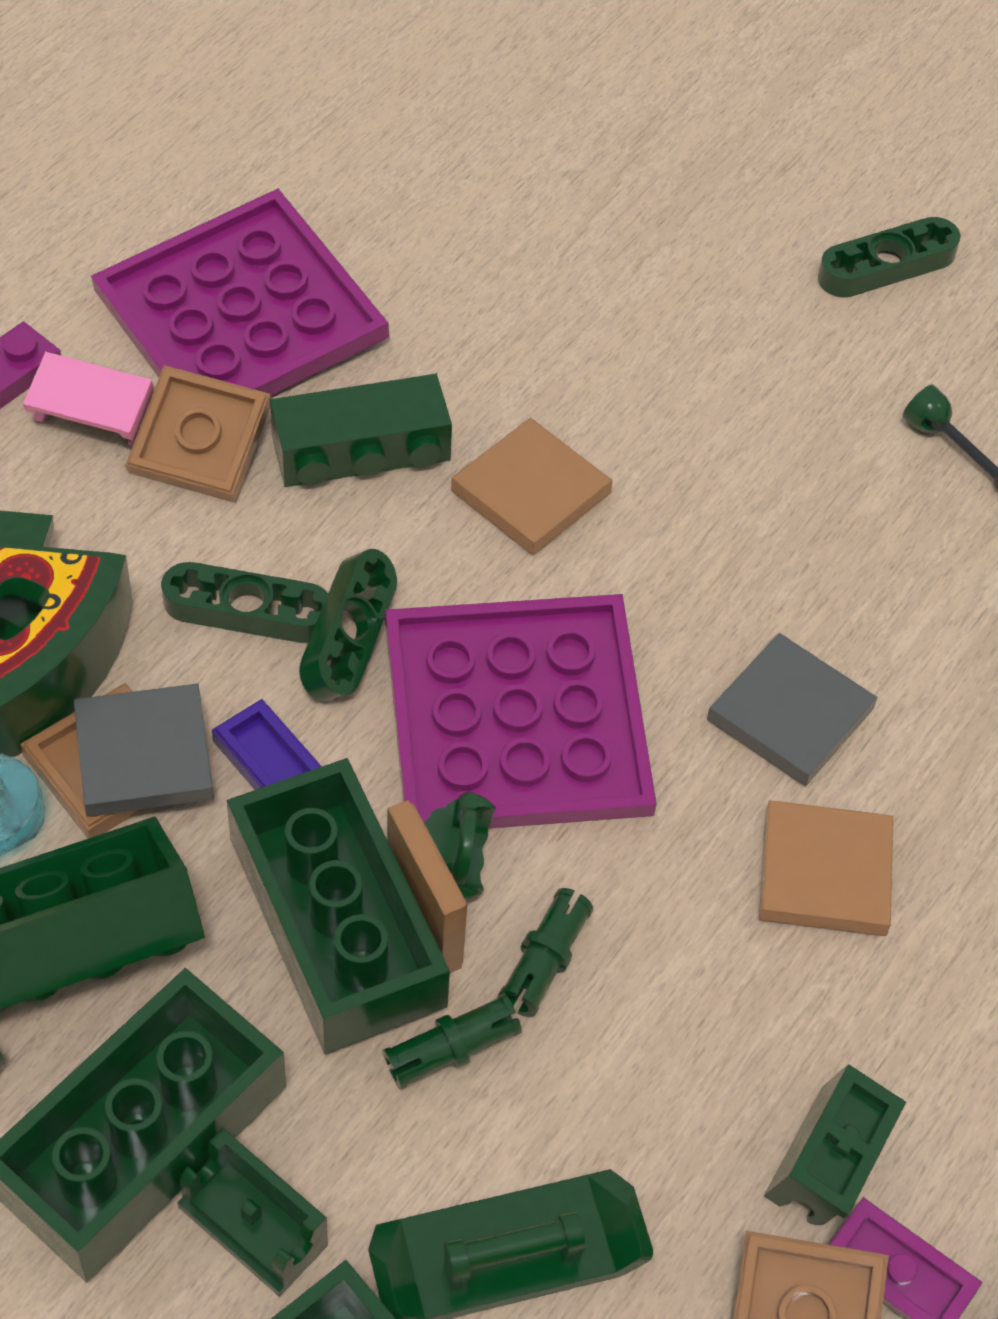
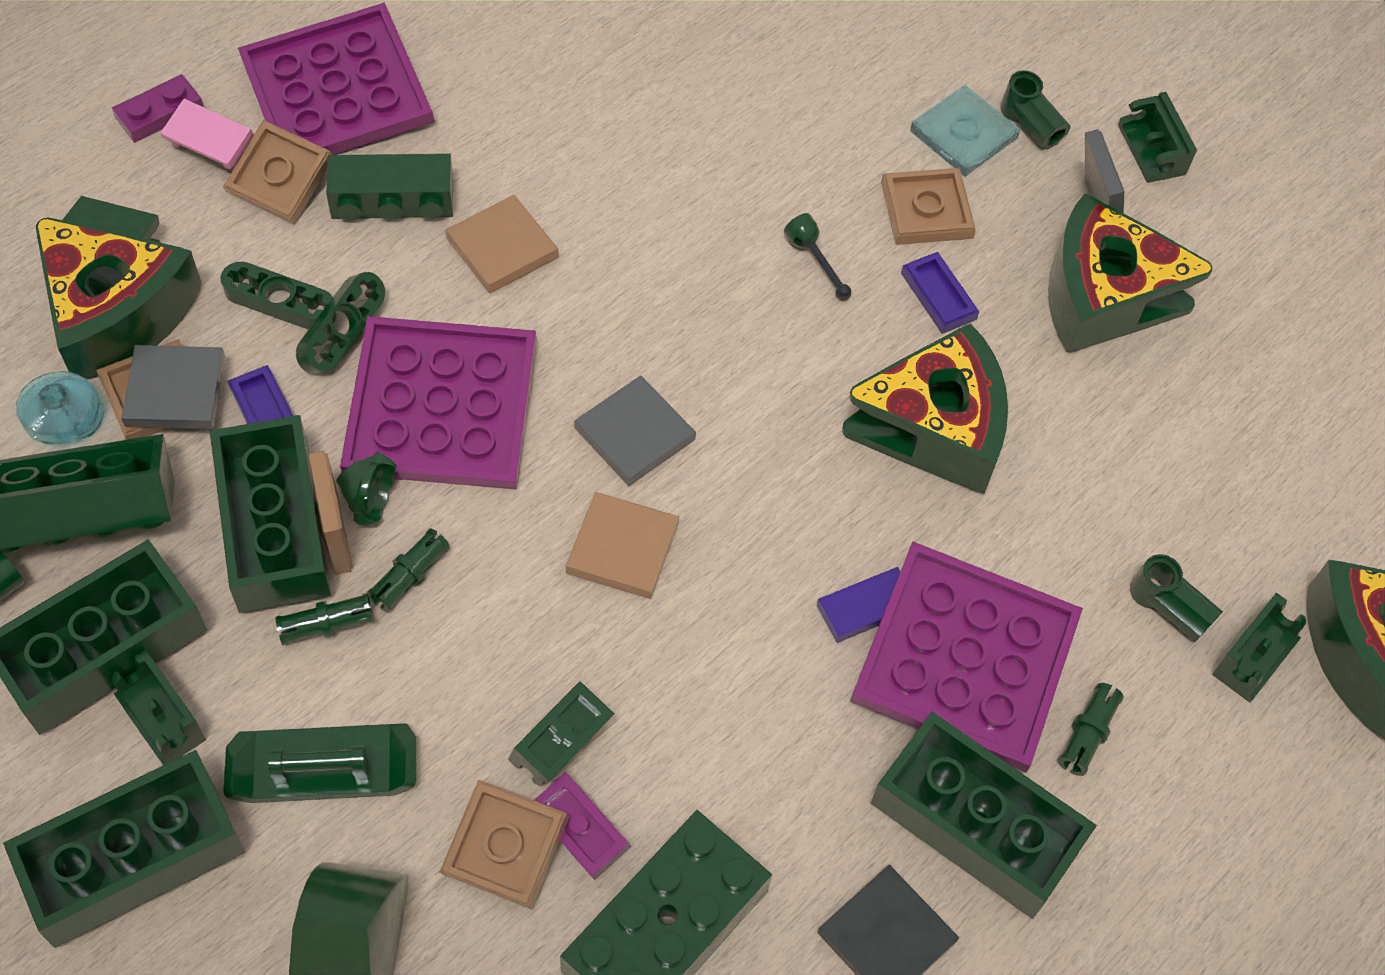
camera: 10 degrees right, 5 degrees up
(856, 269) = (824, 102): dark green beam -> none

